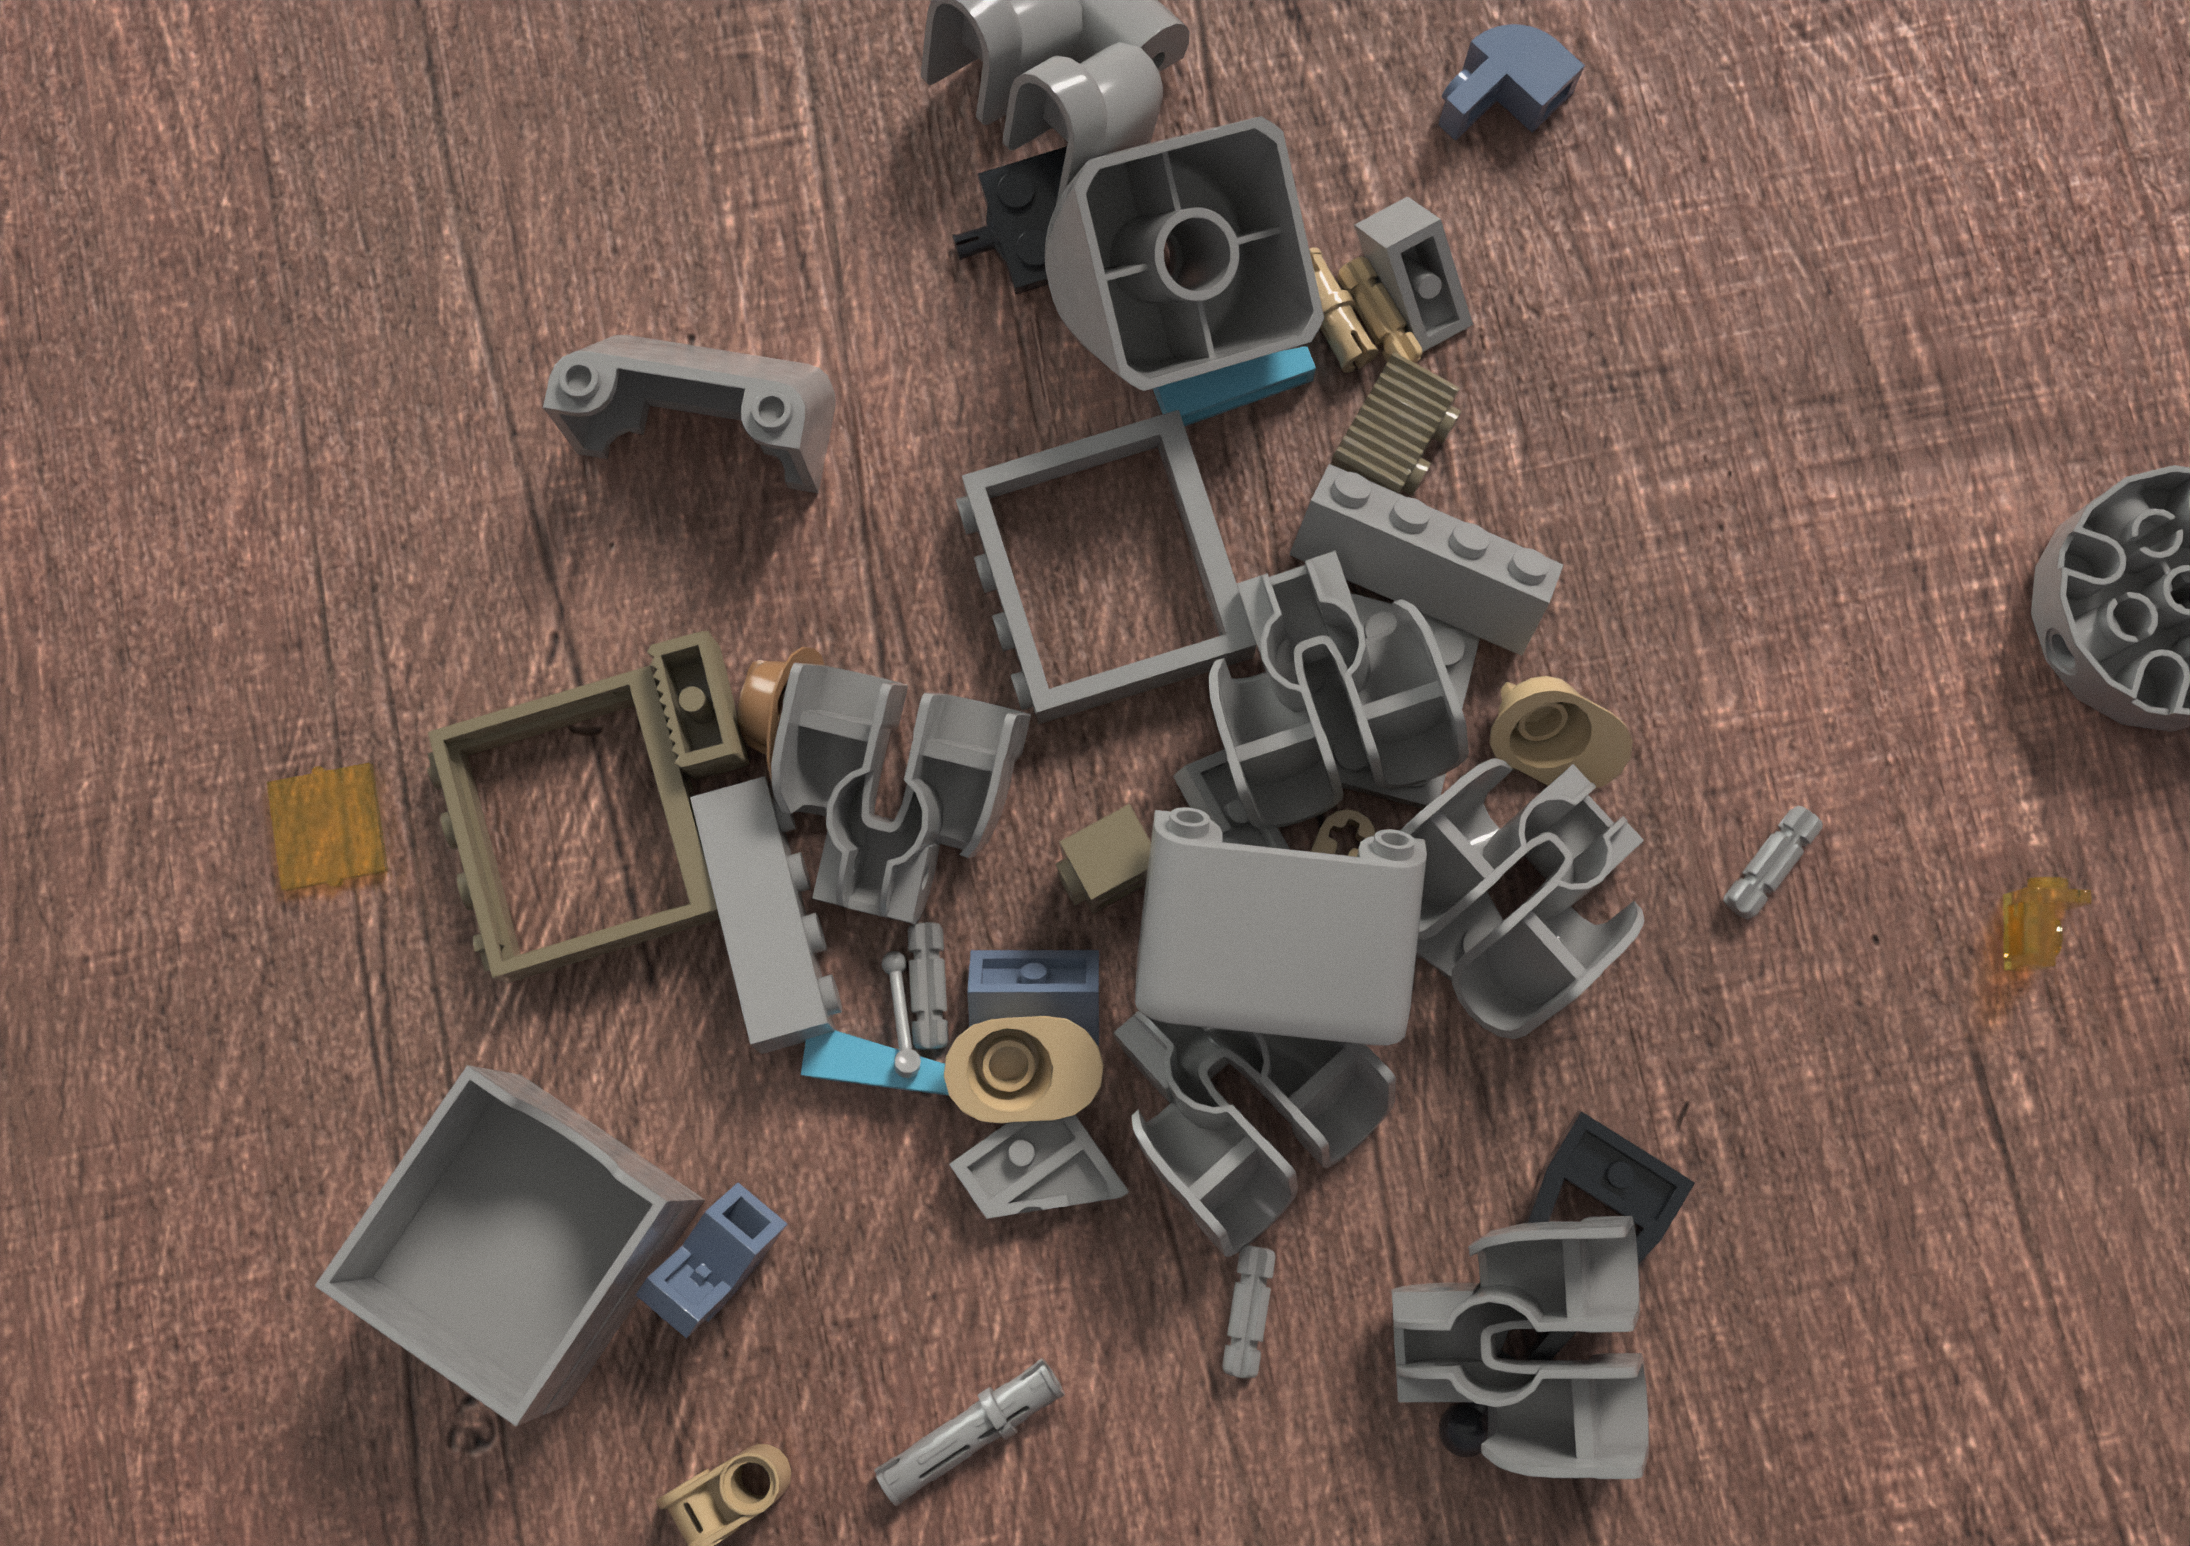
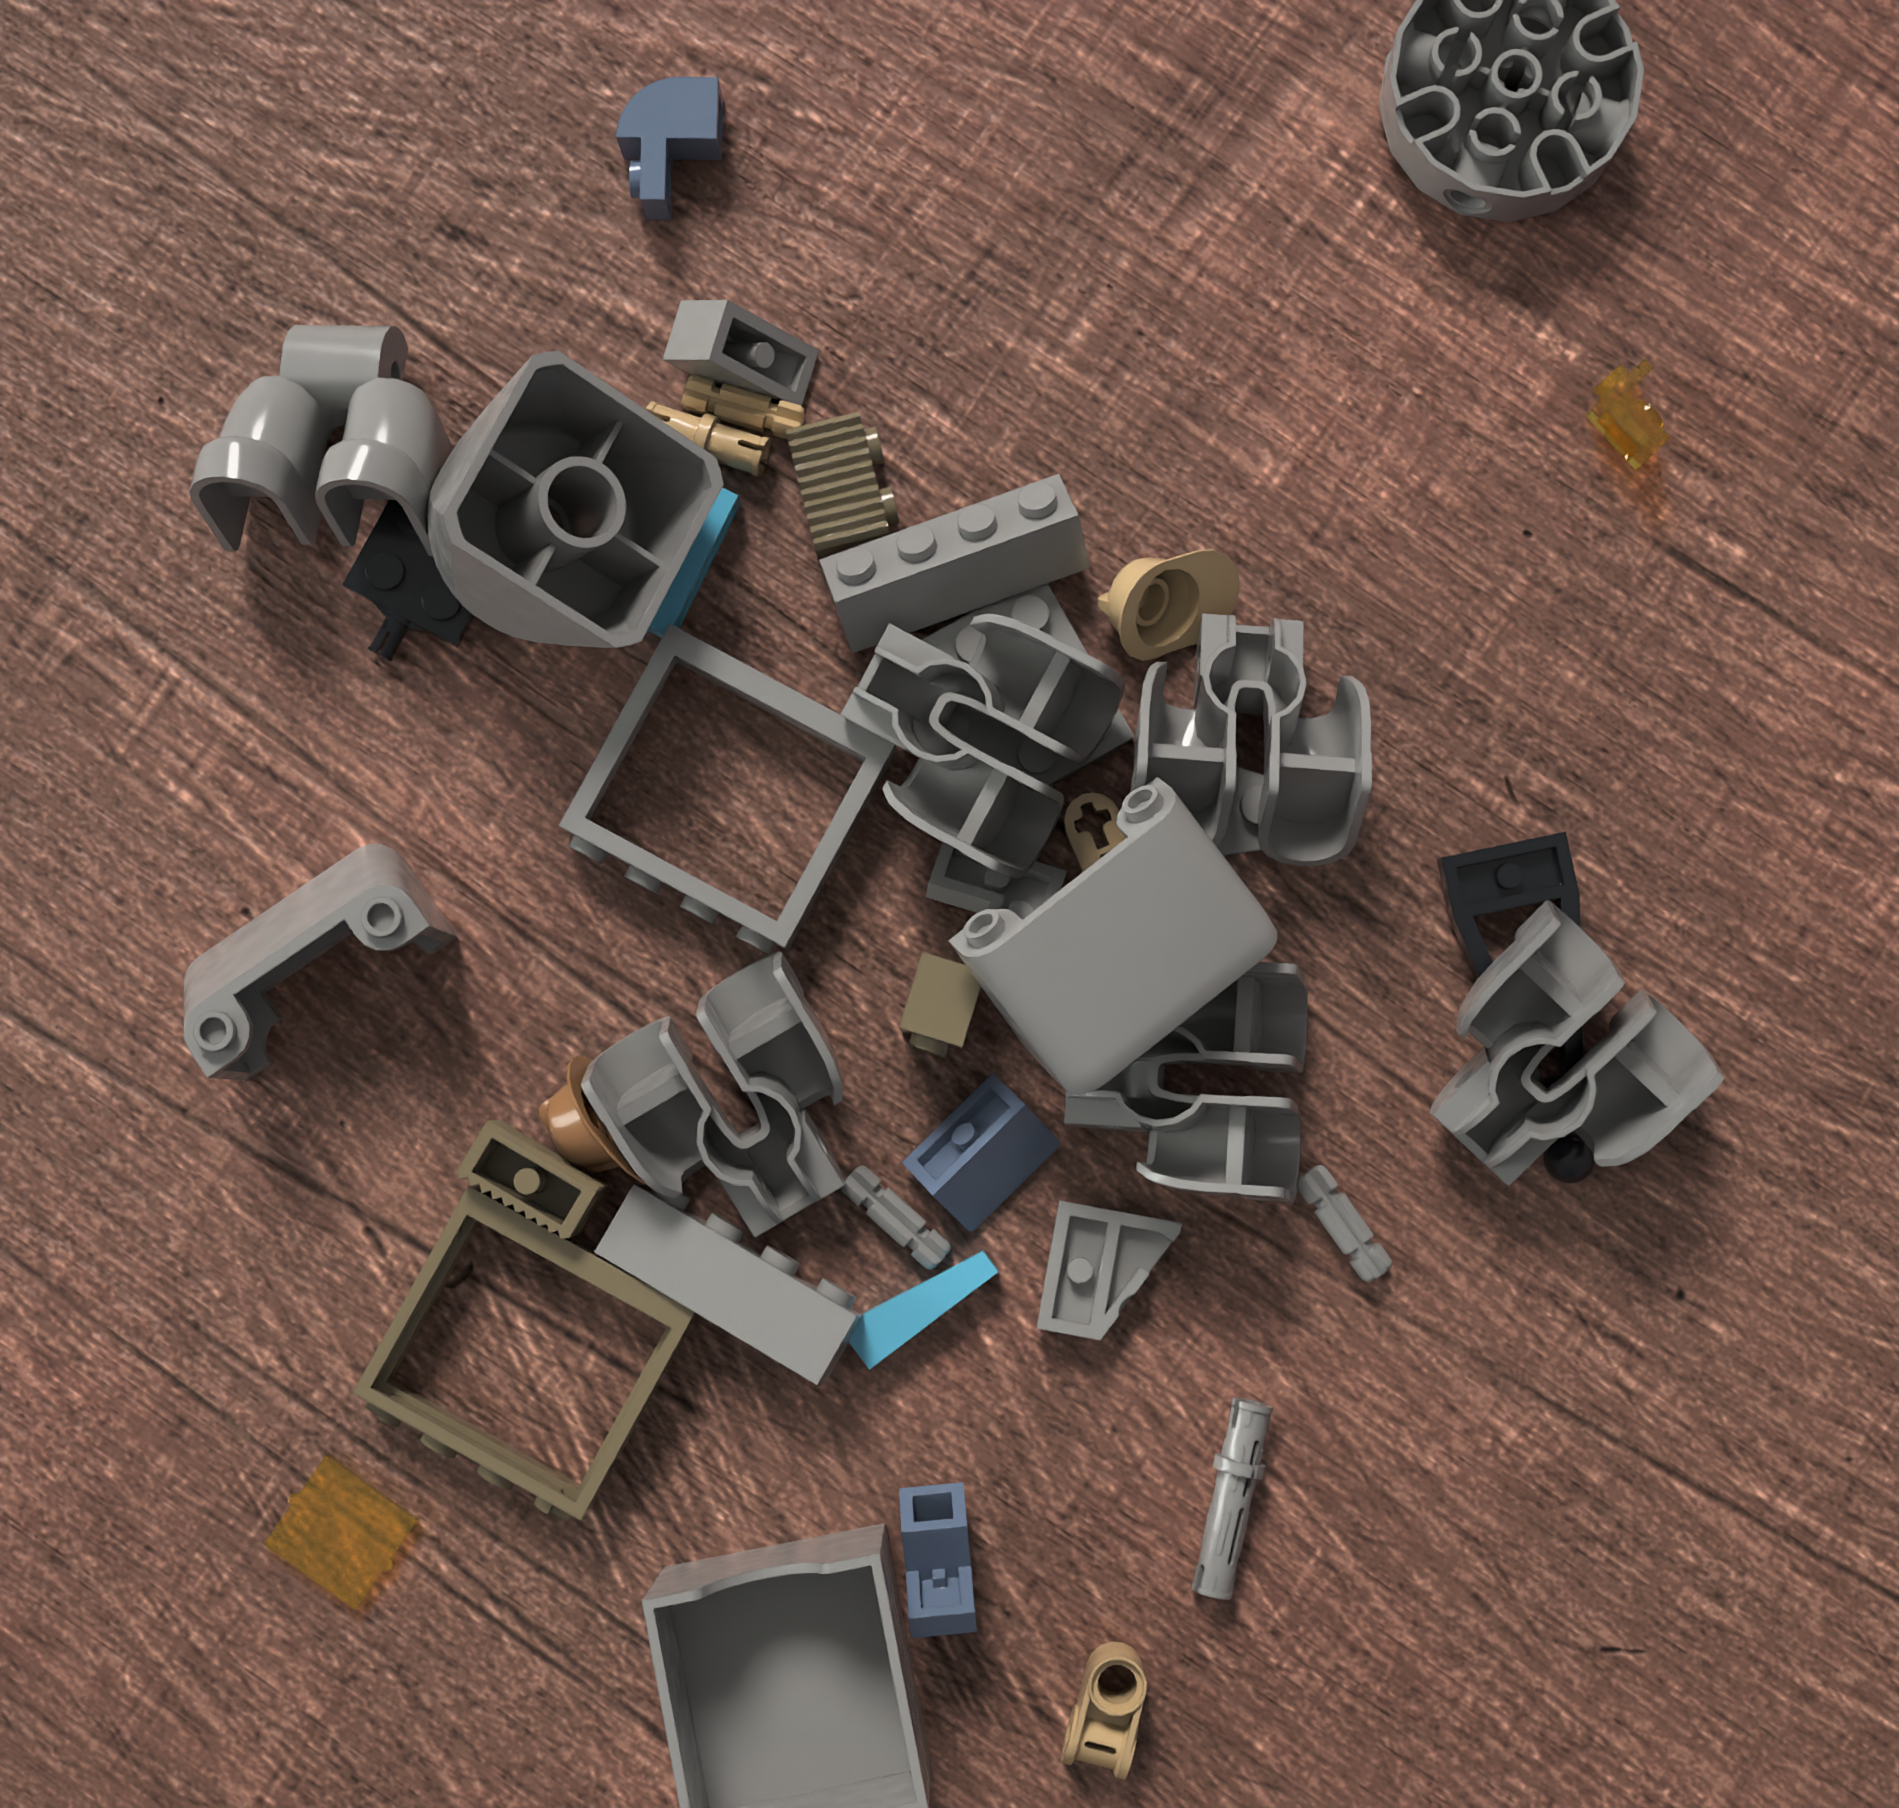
camera: 45 degrees left, 5 degrees up
(907, 1060) = (936, 1285): light grey hinge -> none
(1023, 1069) = (1026, 1211): tan piece -> none
(1773, 862) = (1406, 547): light grey axle -> none

